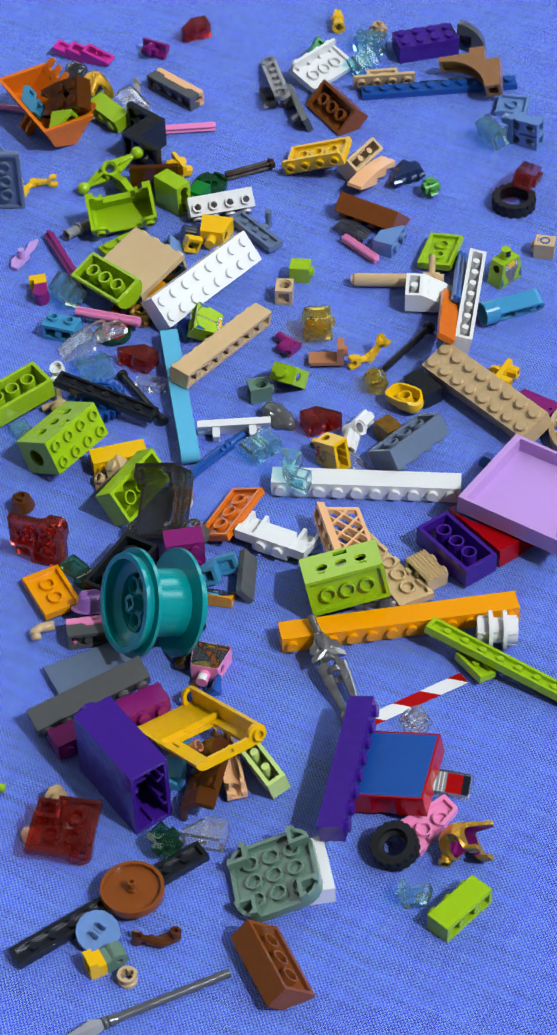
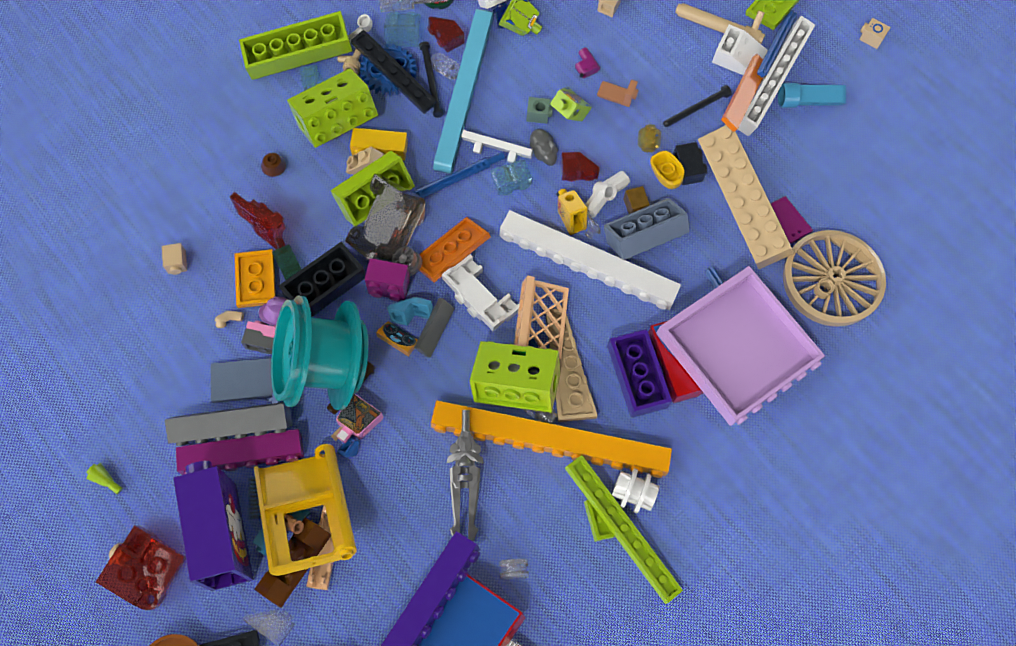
camera: 15 degrees right, 25 degrees up
(54, 792) = (156, 522): tan wheel -> none
(164, 840) = (226, 619): clear green brick -> none
(220, 346) = (521, 48): tan brick -> none
(266, 770) = (353, 574): yellowish green brick -> none
(294, 475) = (524, 218): clear light blue brick -> none
(318, 323) = (623, 52): clear yellow brick -> none
(356, 360) = (642, 106): yellow piece -> none
(420, 697) = (530, 533): sticker -> none
(427, 569) = (601, 385): tan brick -> none
(504, 268) = (825, 48): lime torso -> none
(506, 371) = (769, 173): yellow hips -> none

